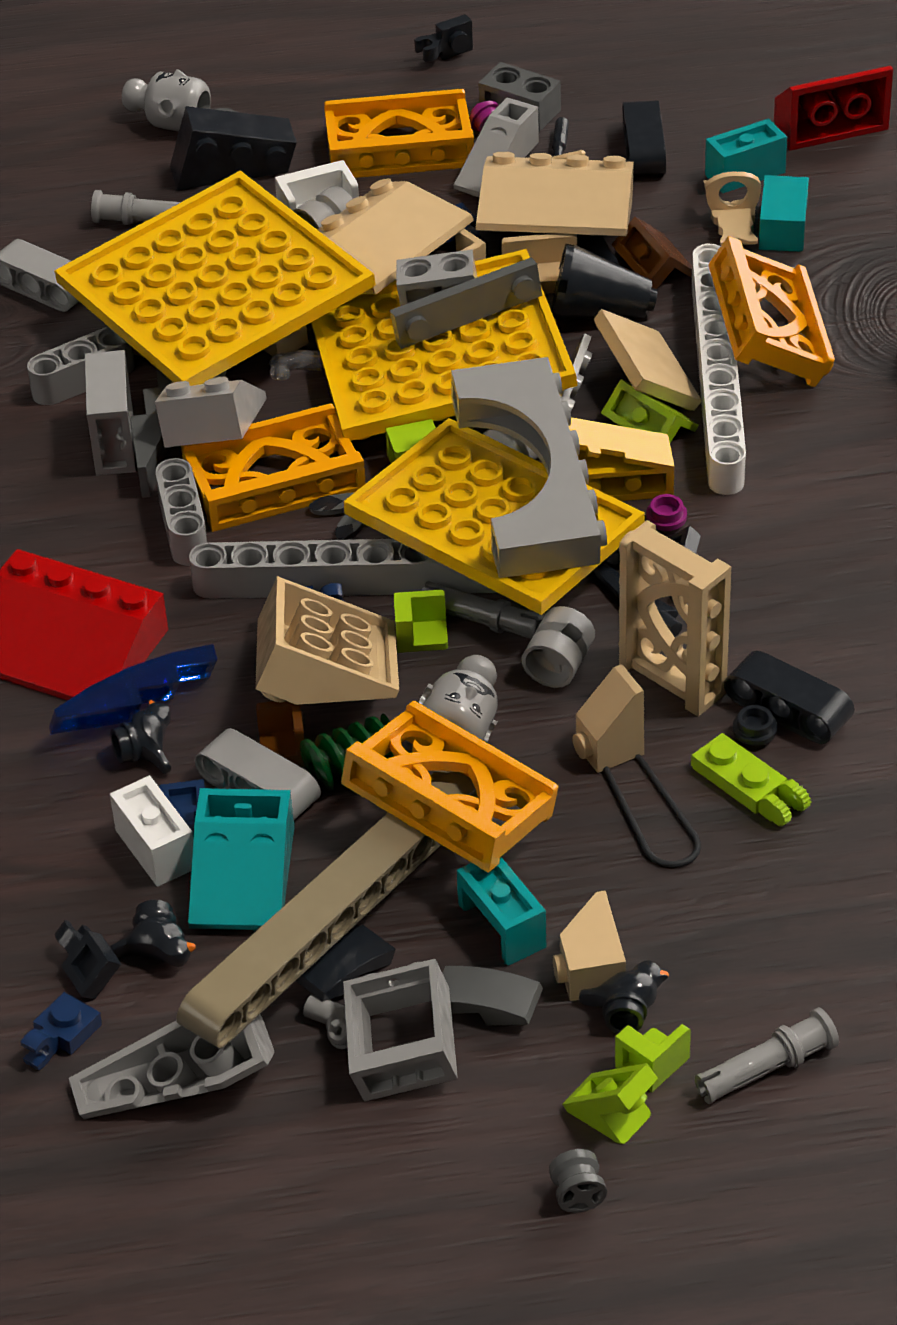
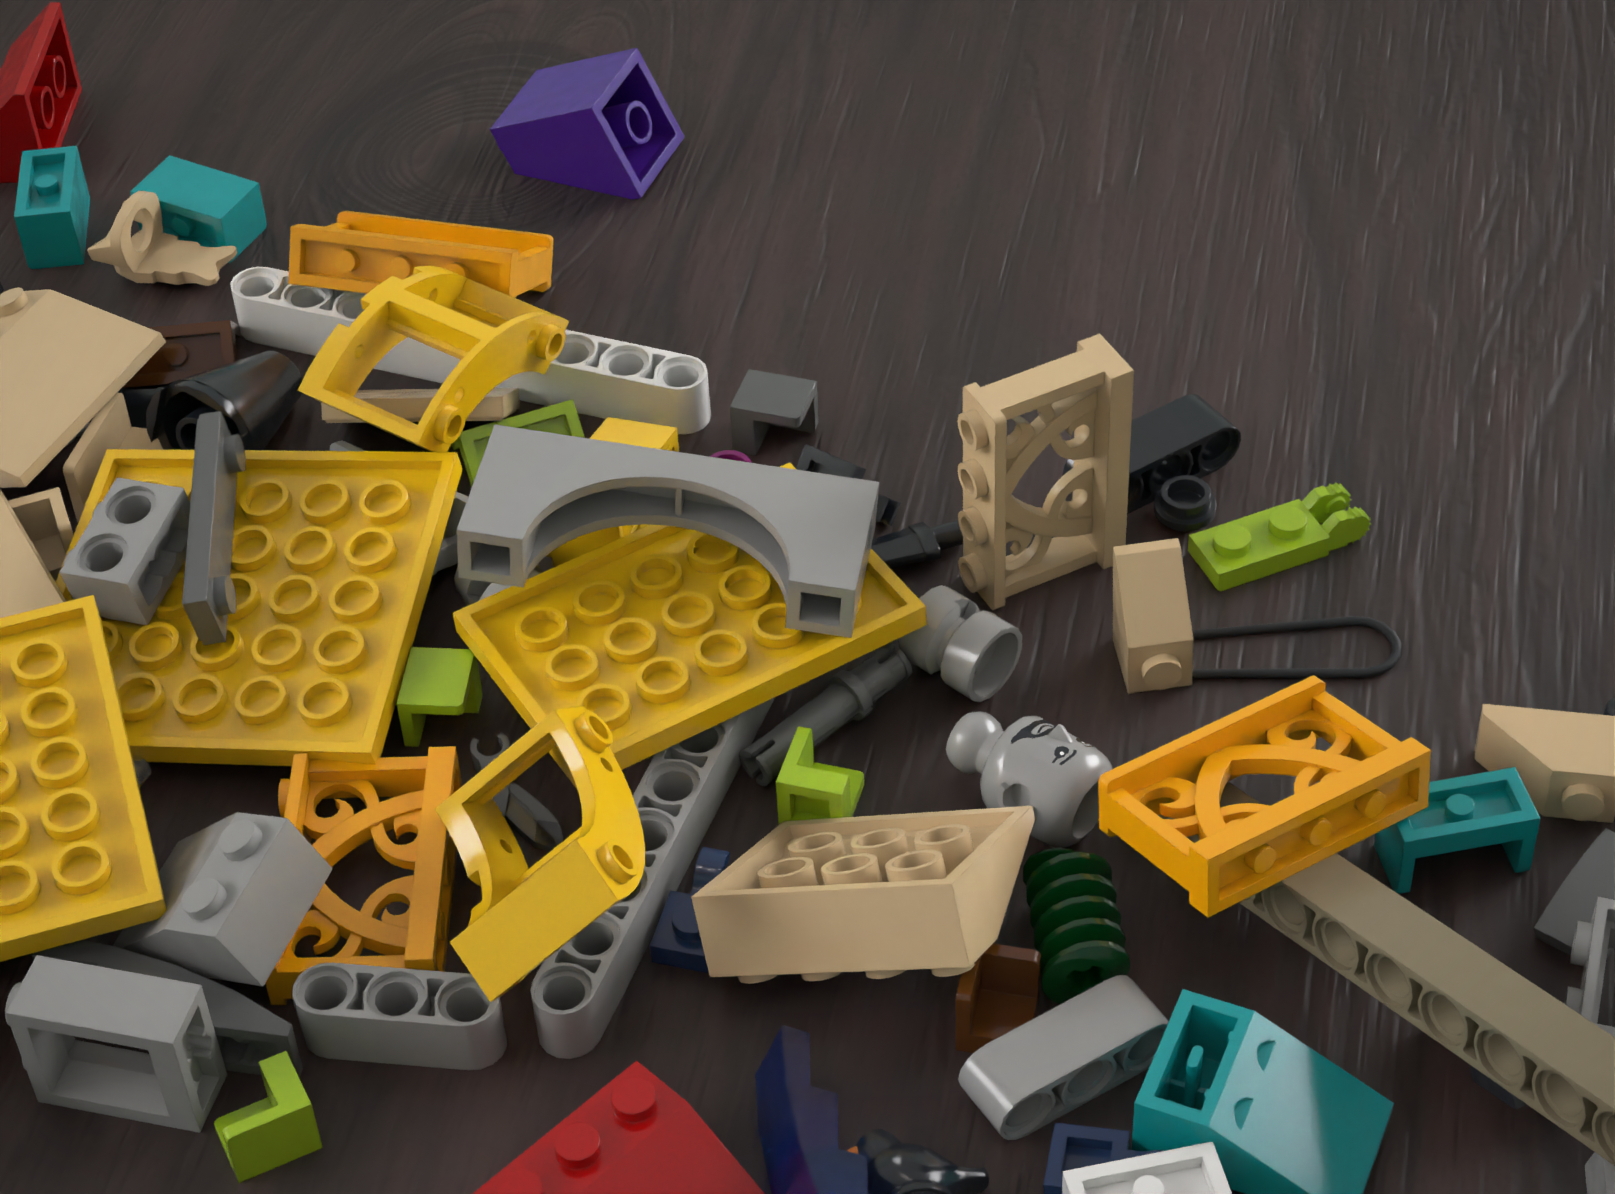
camera: 70 degrees left, 0 degrees up
(103, 493) = (272, 1128): none -> lime panel
(291, 514) = (541, 908): none -> yellow window
(655, 301) = (450, 313): none -> yellow window
(730, 504) = (769, 401): none -> dark grey panel

